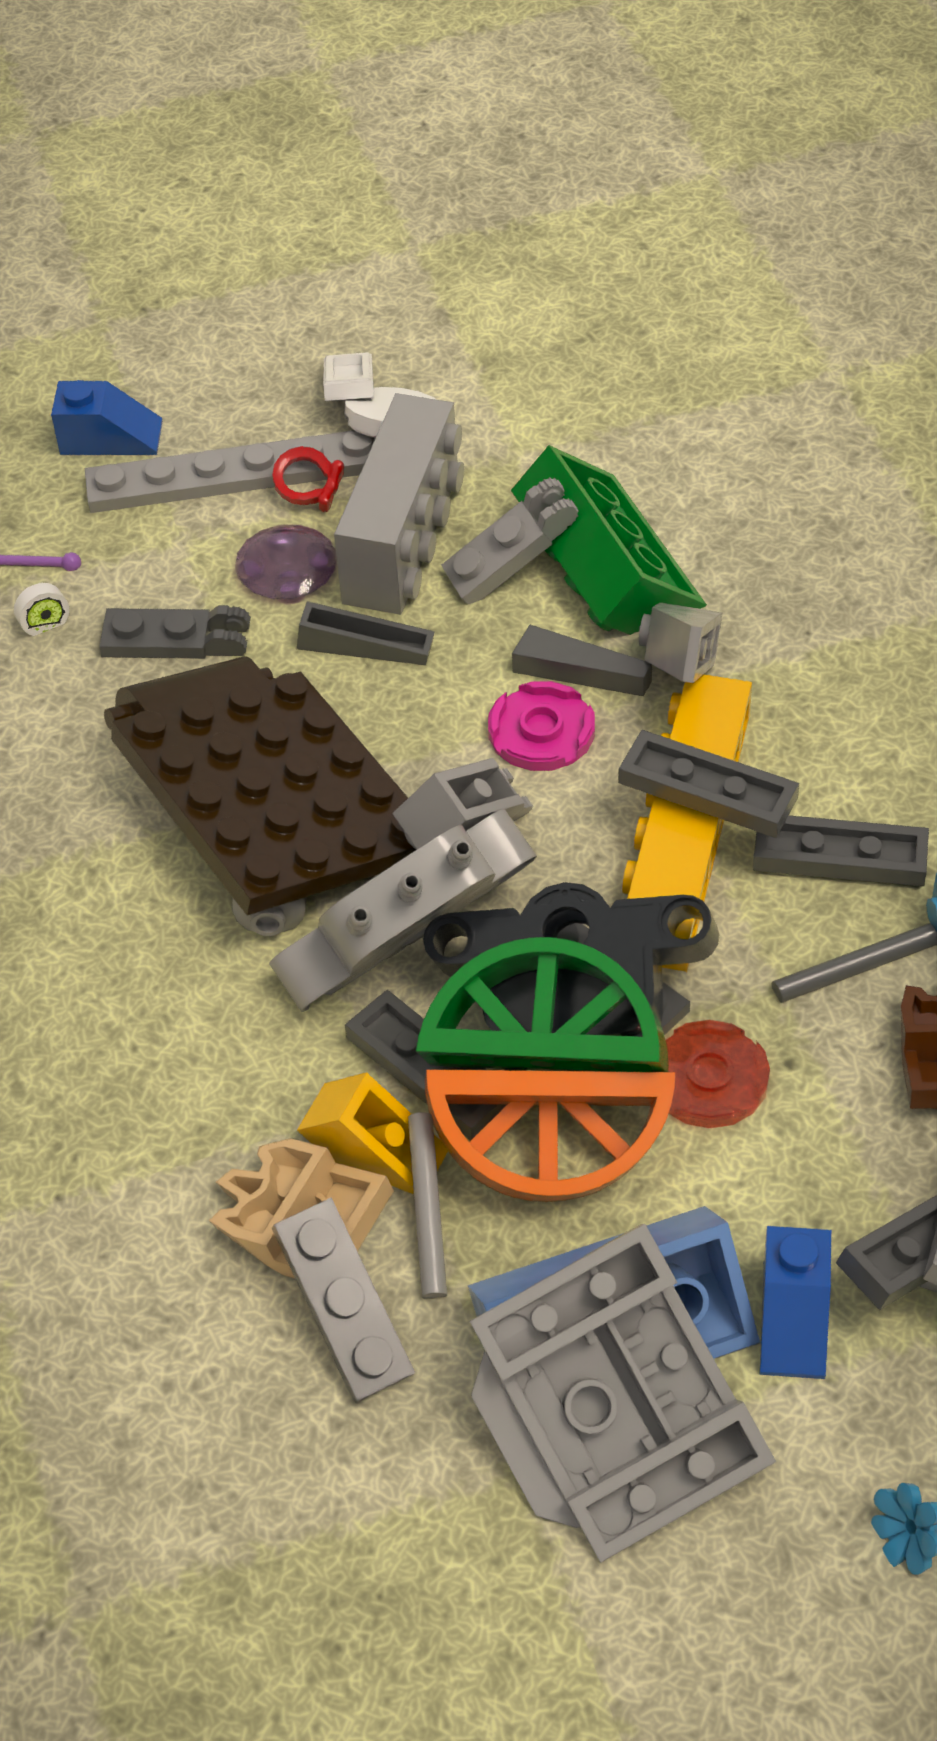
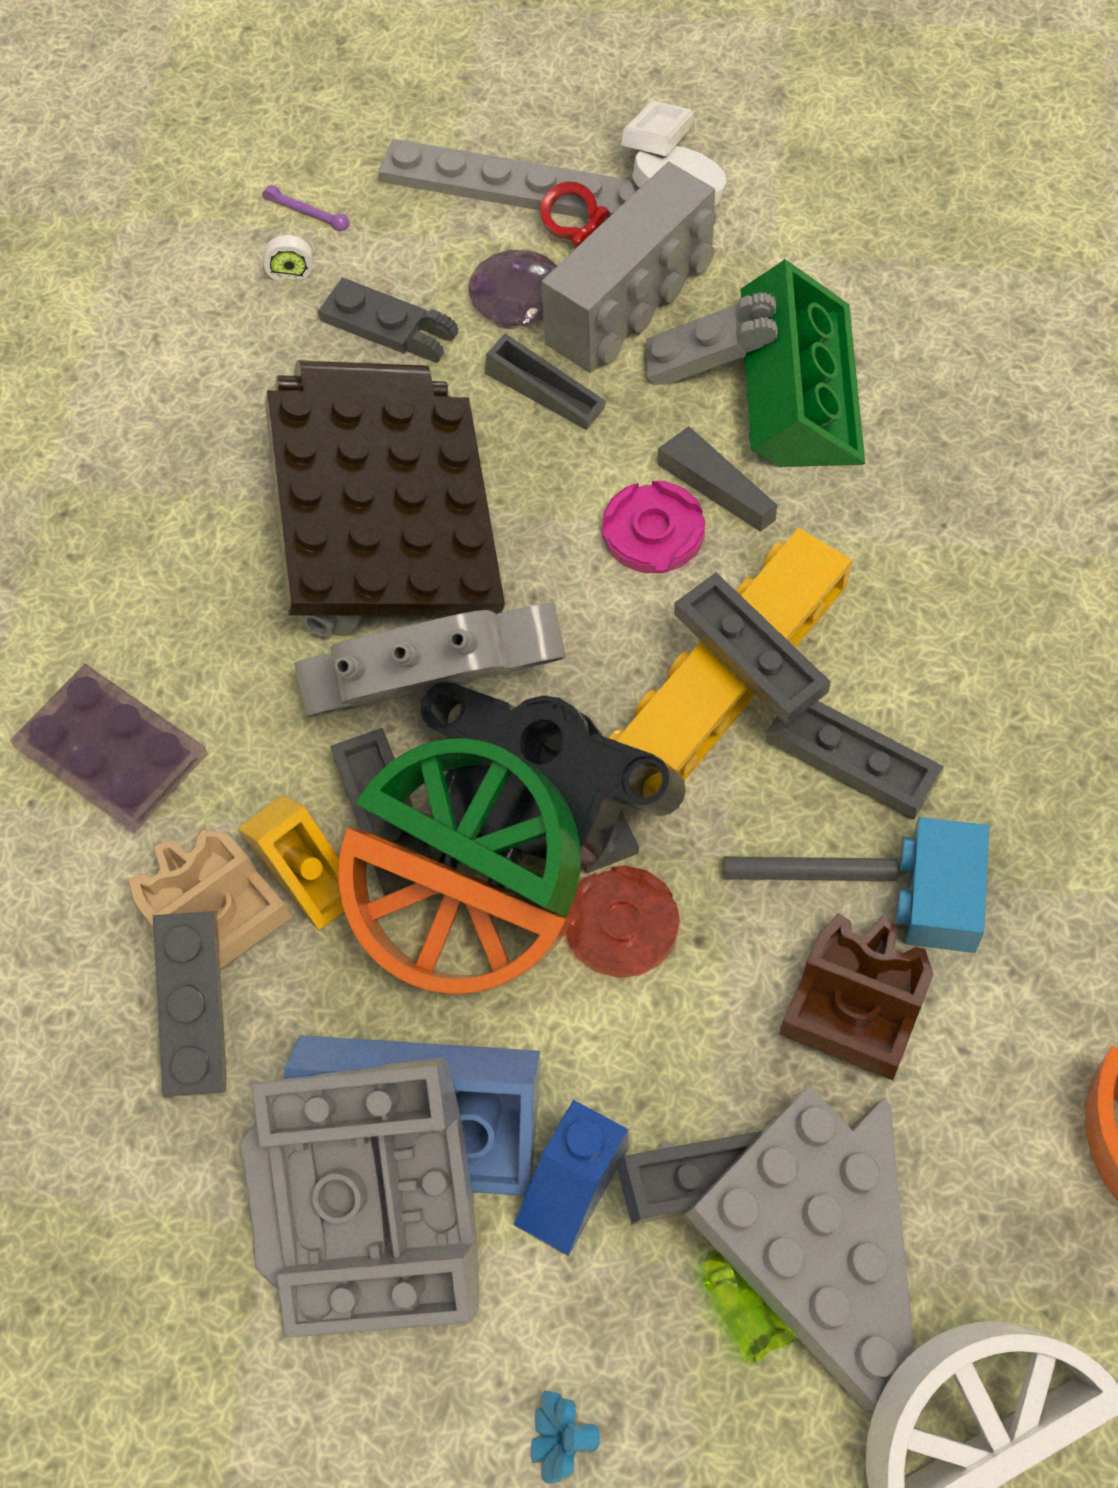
camera: 25 degrees right, 10 degrees up
(102, 421) = (428, 99): blue slope -> none
(113, 1115) = (109, 748): none -> plate
(427, 1205) = (307, 948): light grey bar -> none
(459, 798) = (525, 578): light grey hinge -> none
(681, 639) = (811, 496): light grey slope -> none

